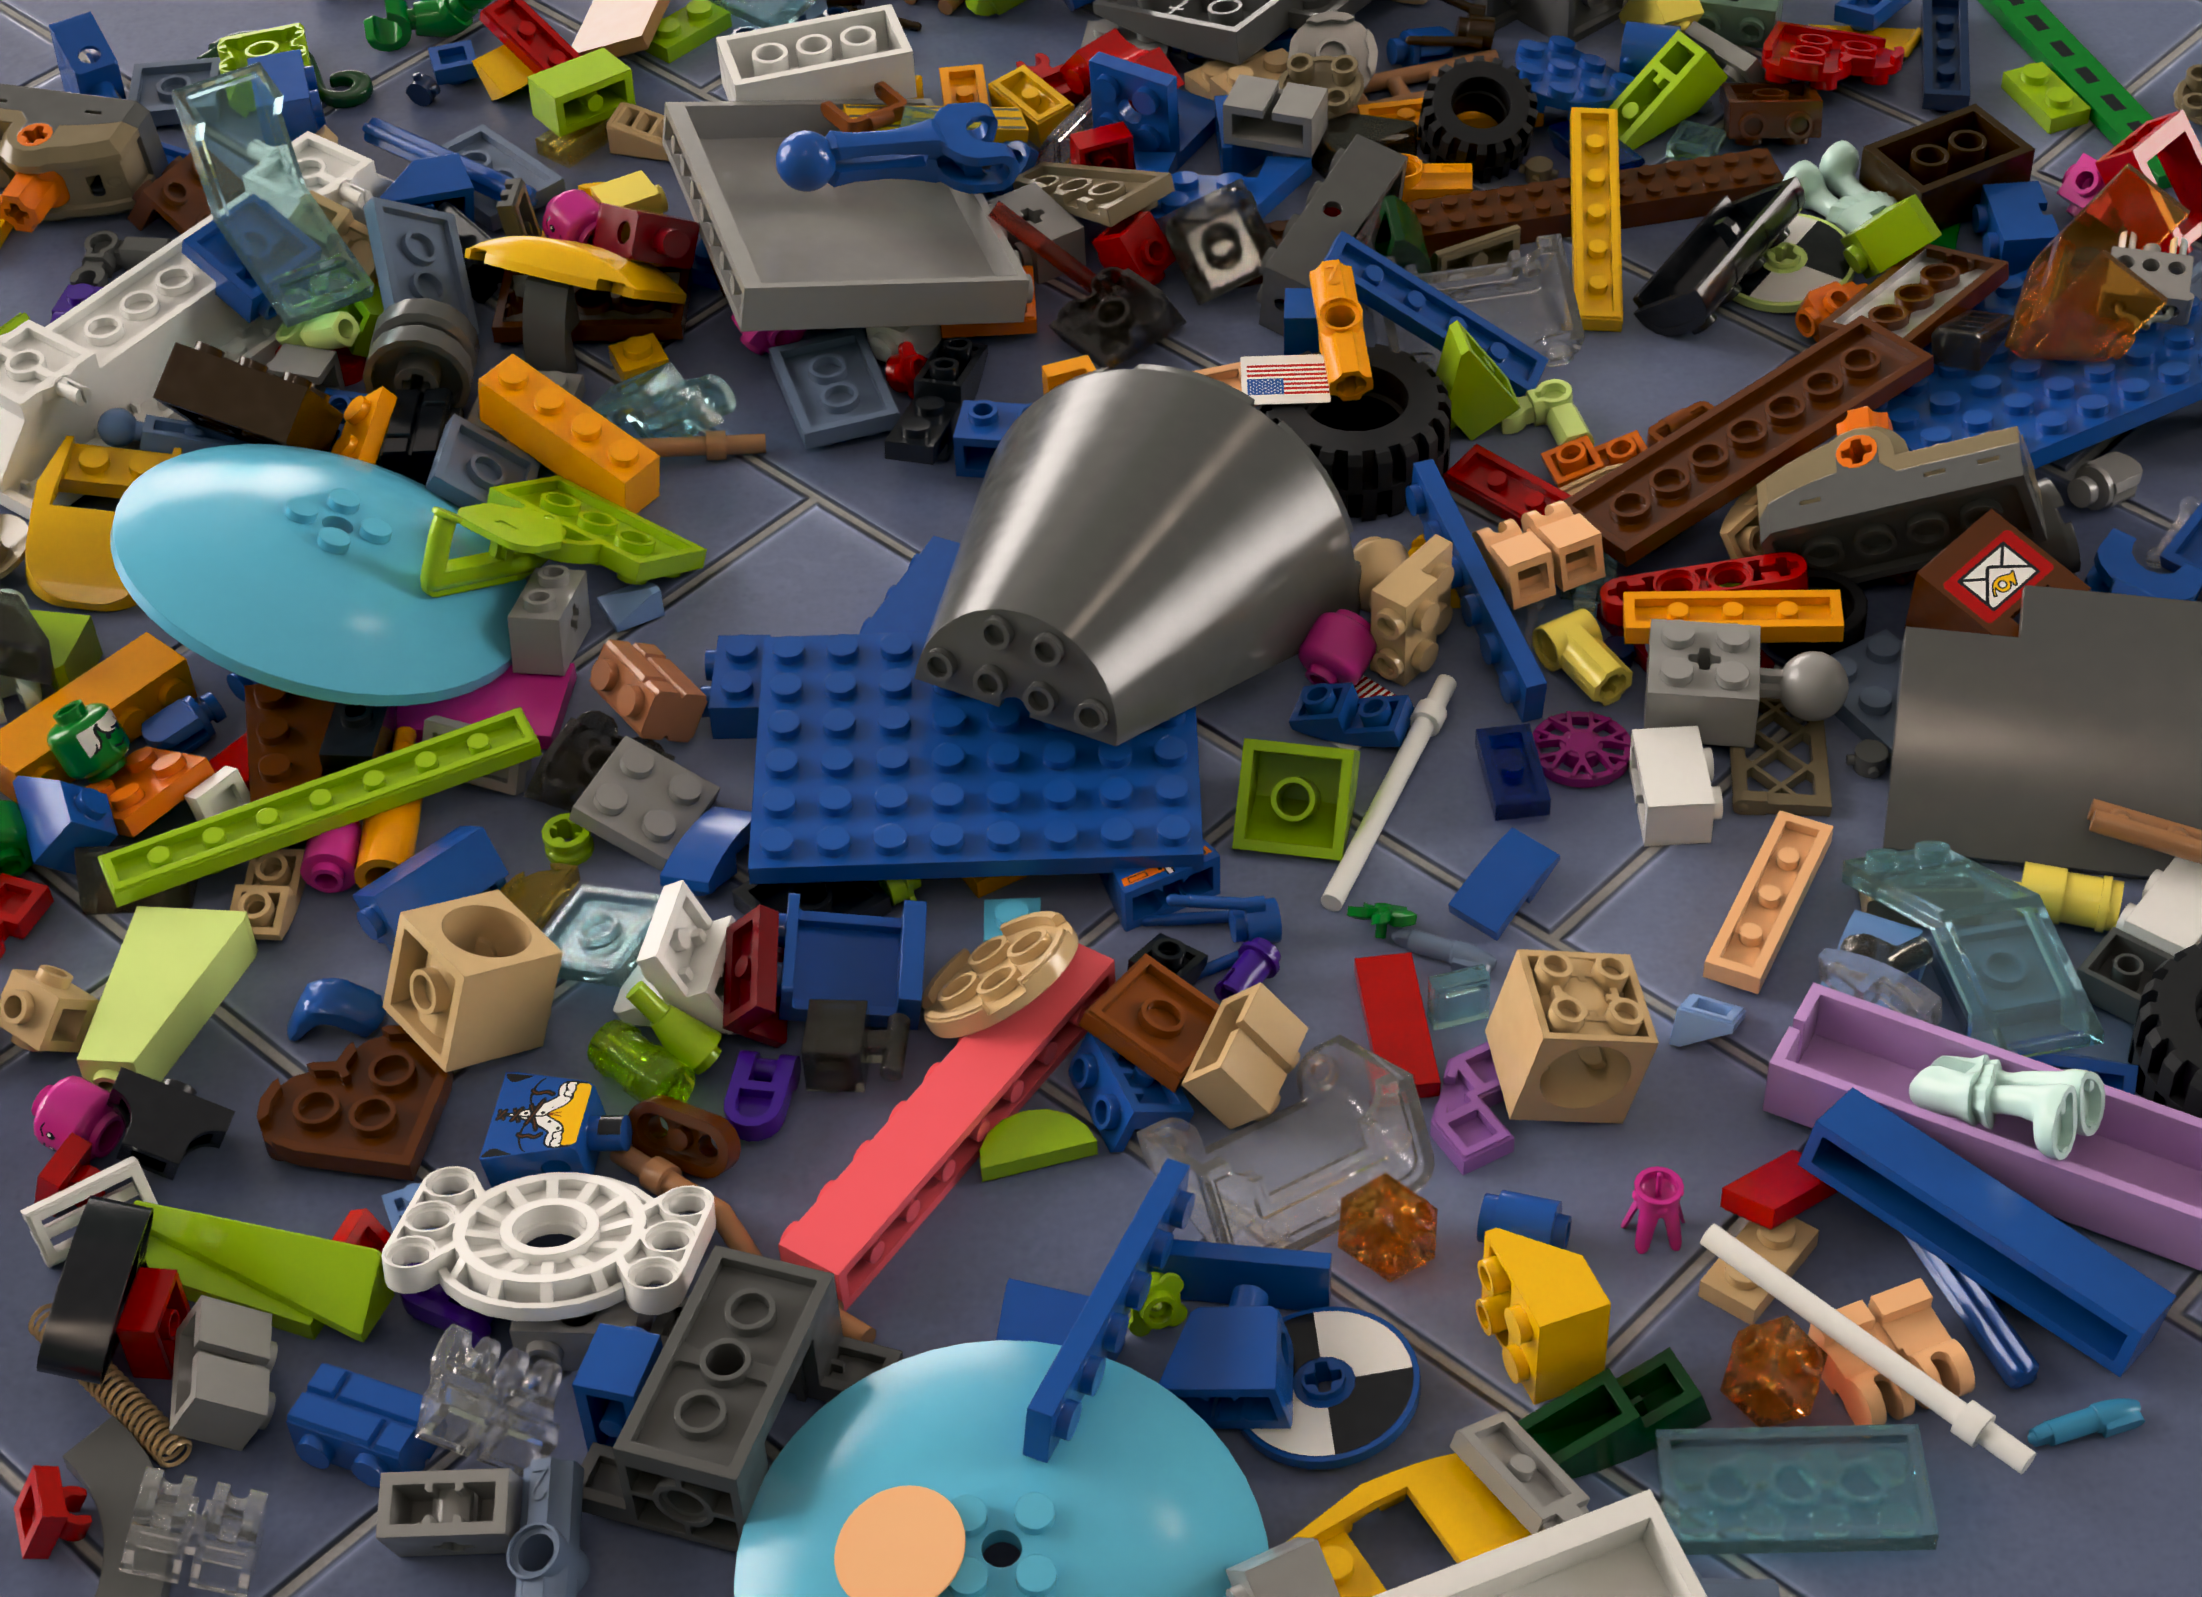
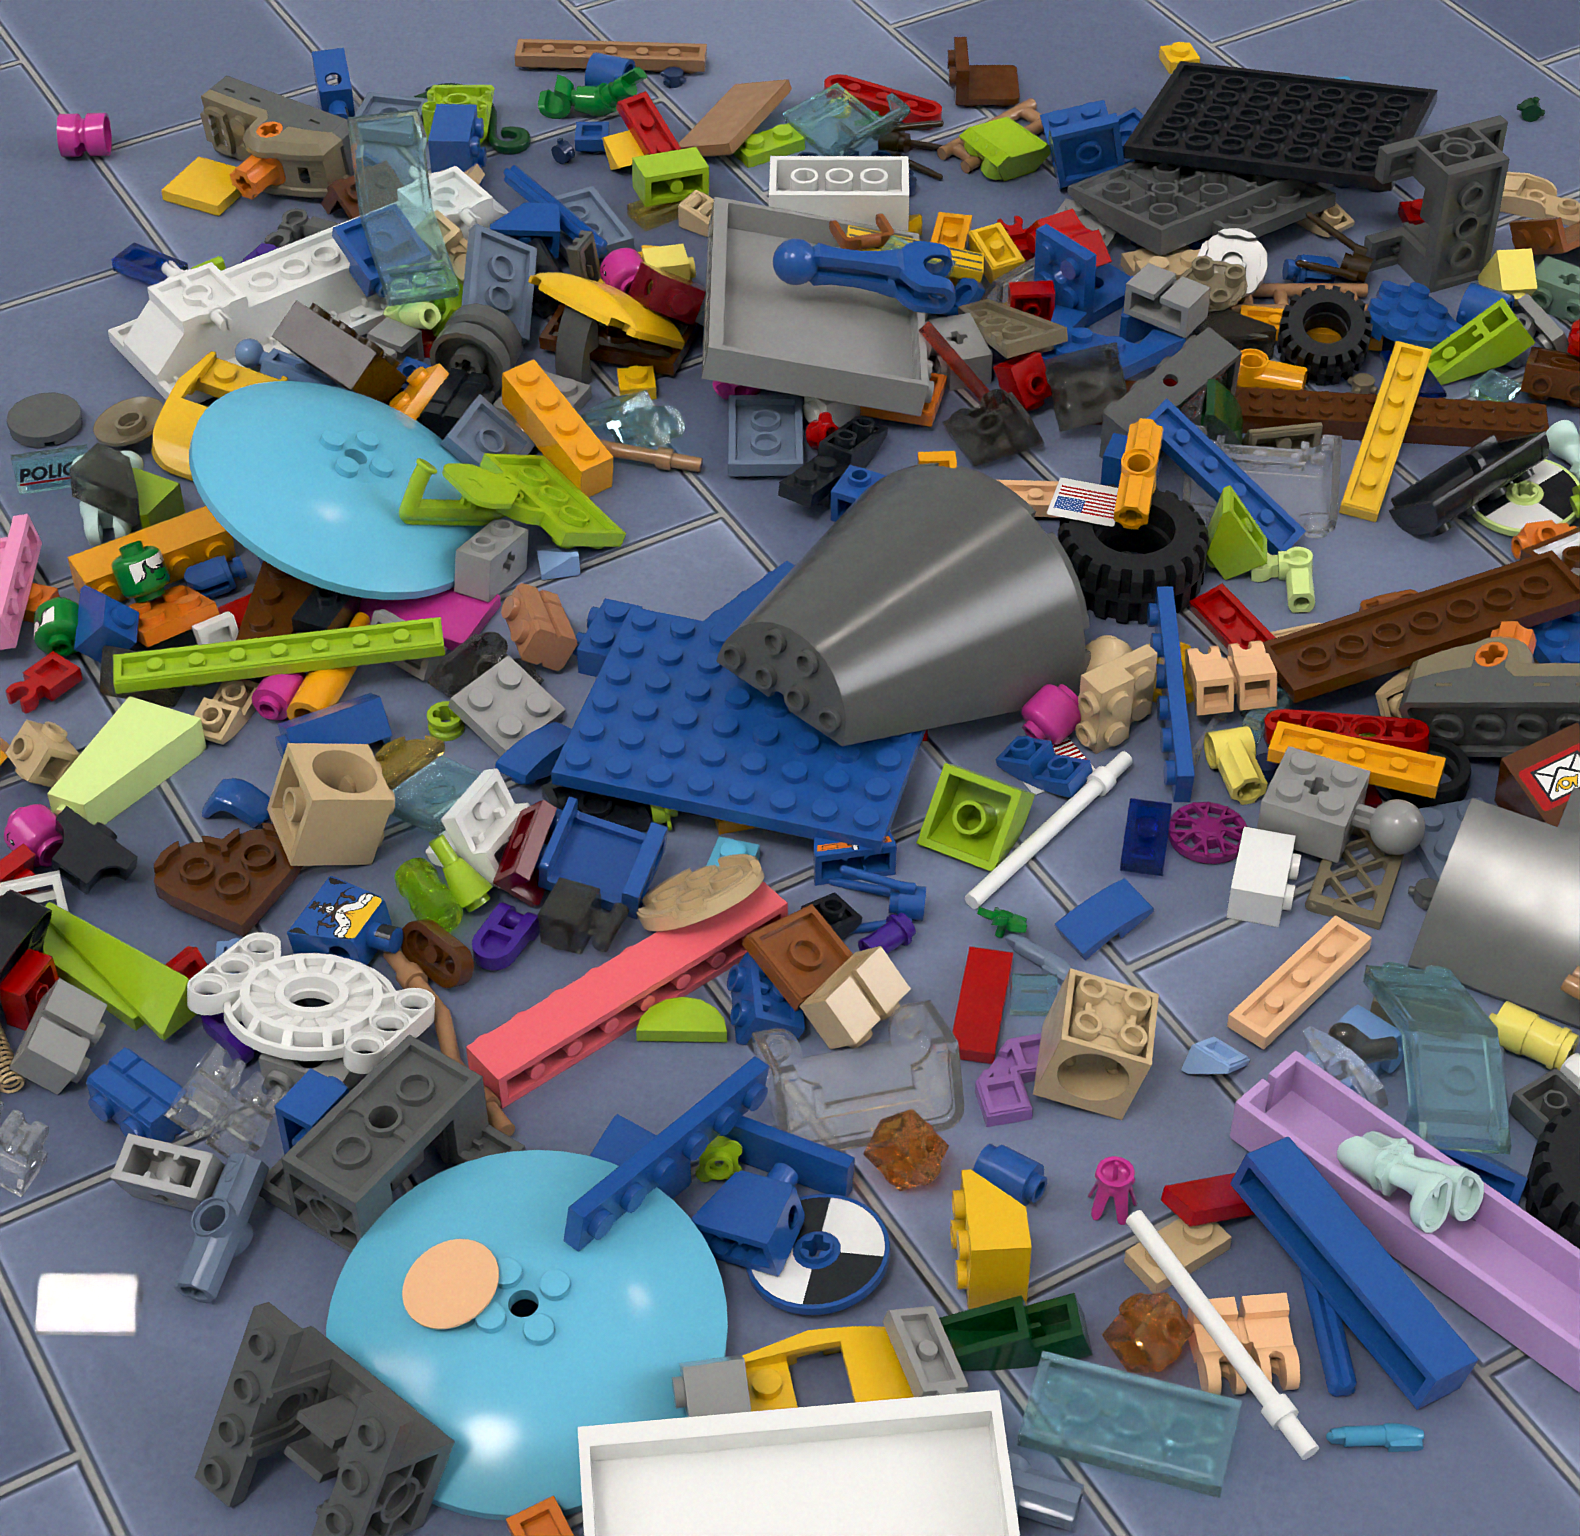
camera: 15 degrees right, 0 degrees up
(1581, 458) = (1298, 612): orange slope -> none

